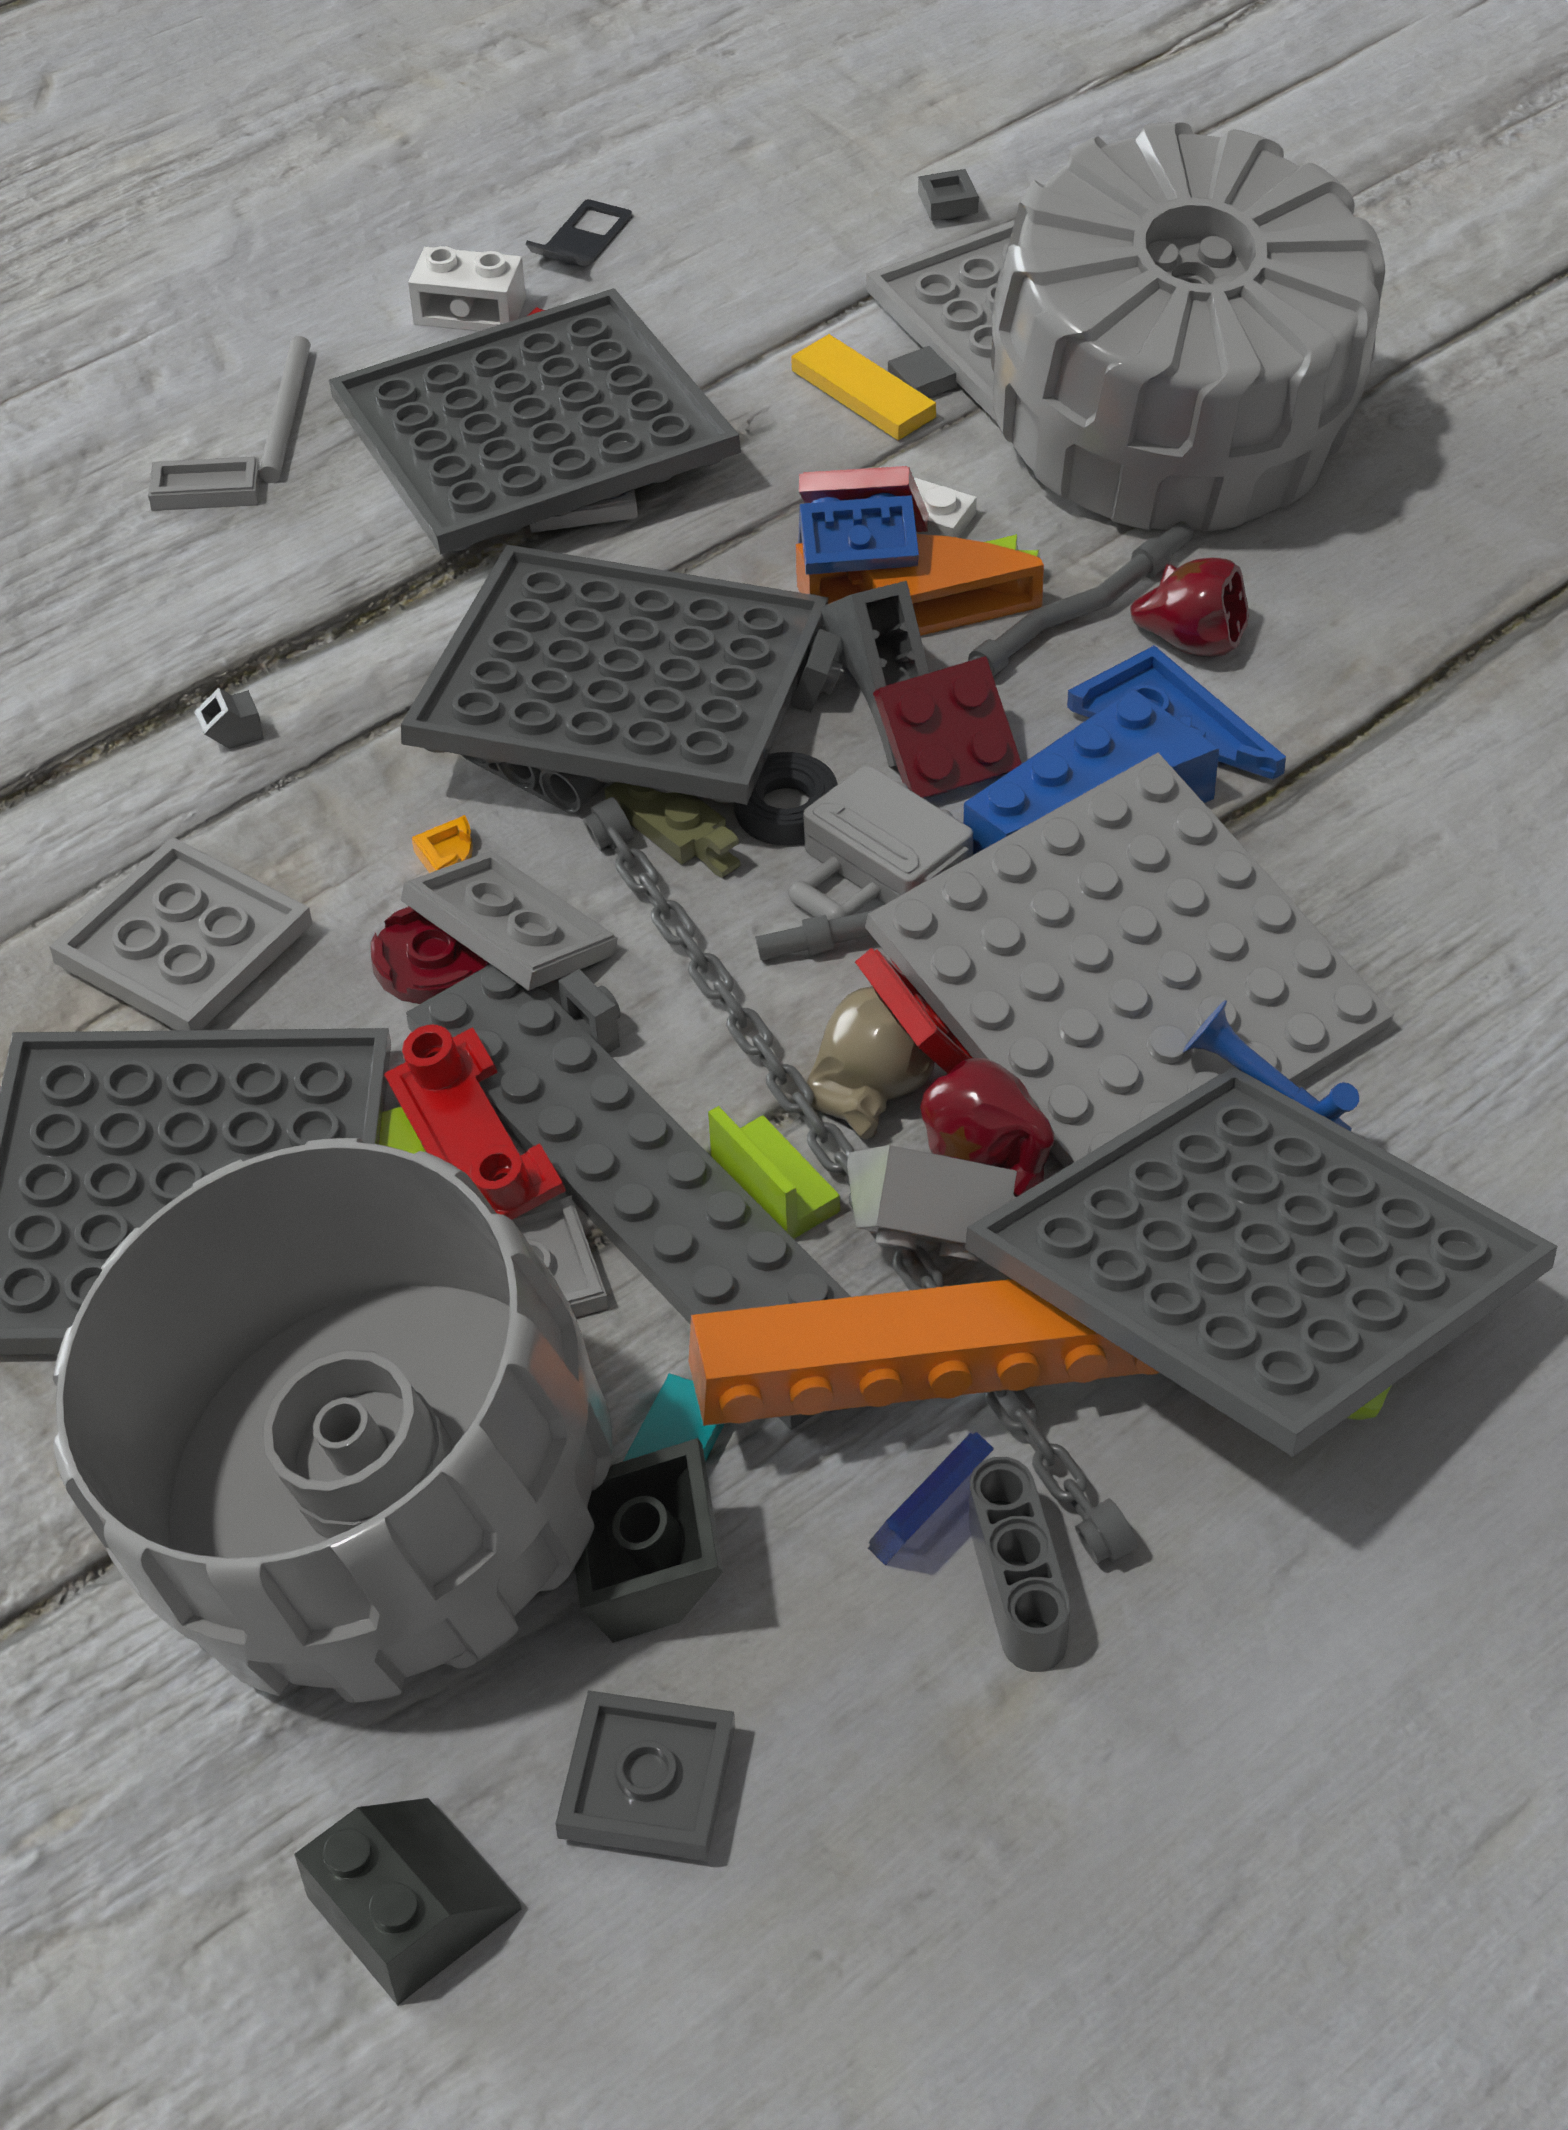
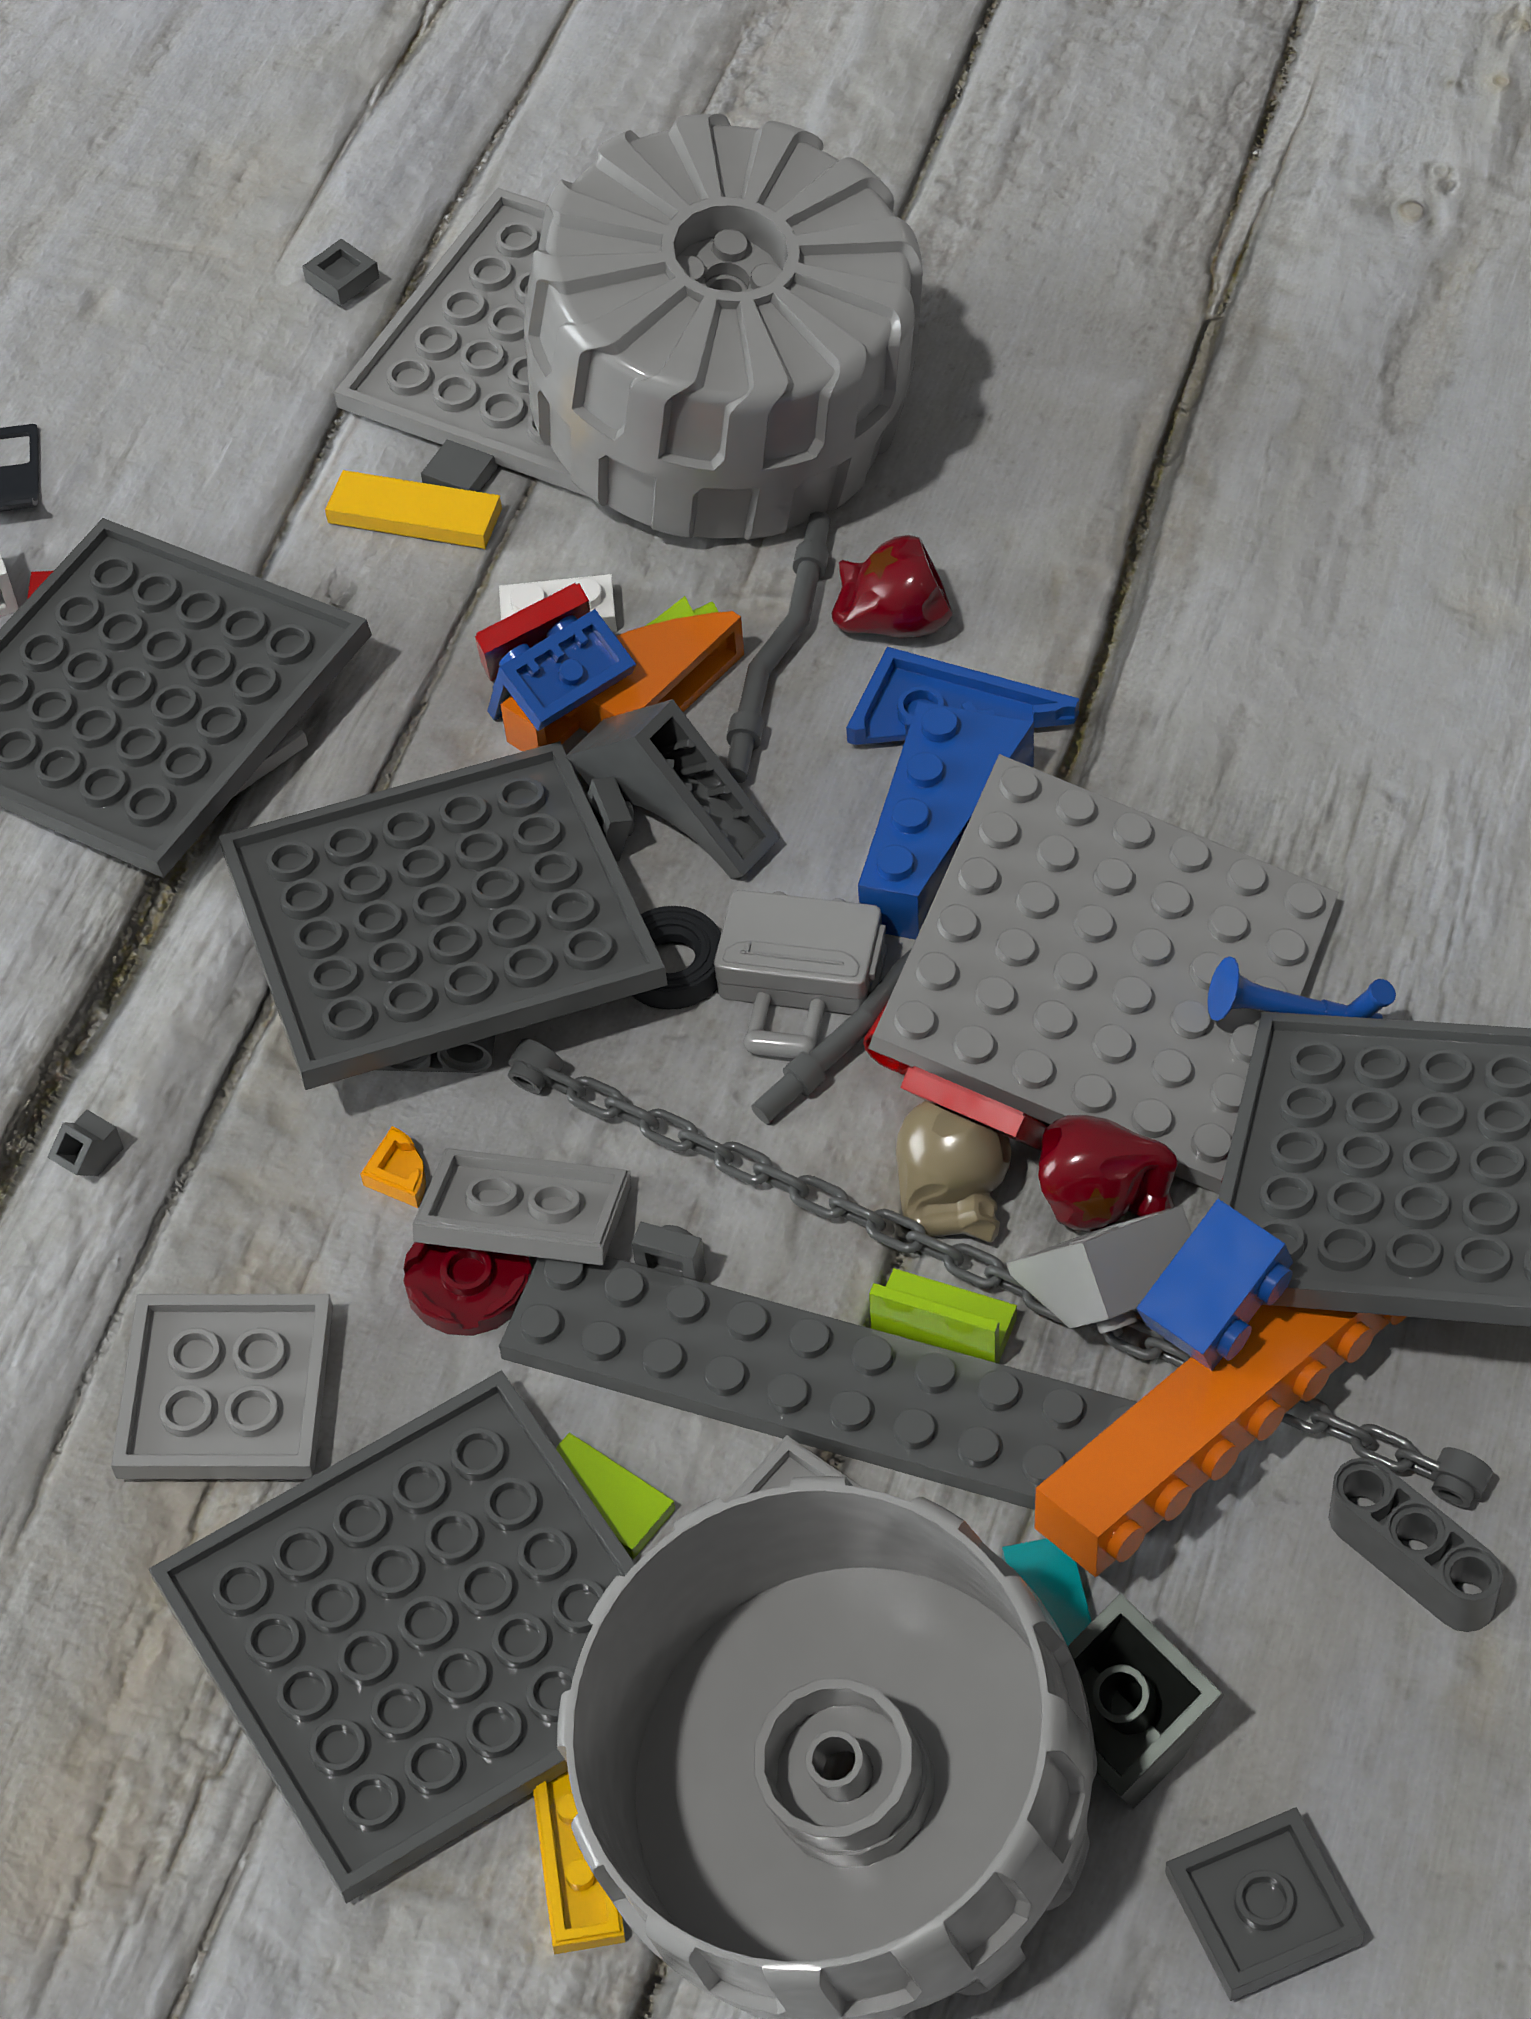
camera: 30 degrees left, 5 degrees up
(458, 1124) = (652, 1429): red brick -> none
(678, 825) = (602, 1035): olive plate -> none
(929, 1497) = (1304, 1530): clear blue tile -> none
(947, 728) = (776, 818): dark red plate -> none
(965, 1231) = (1217, 1286): none -> blue brick

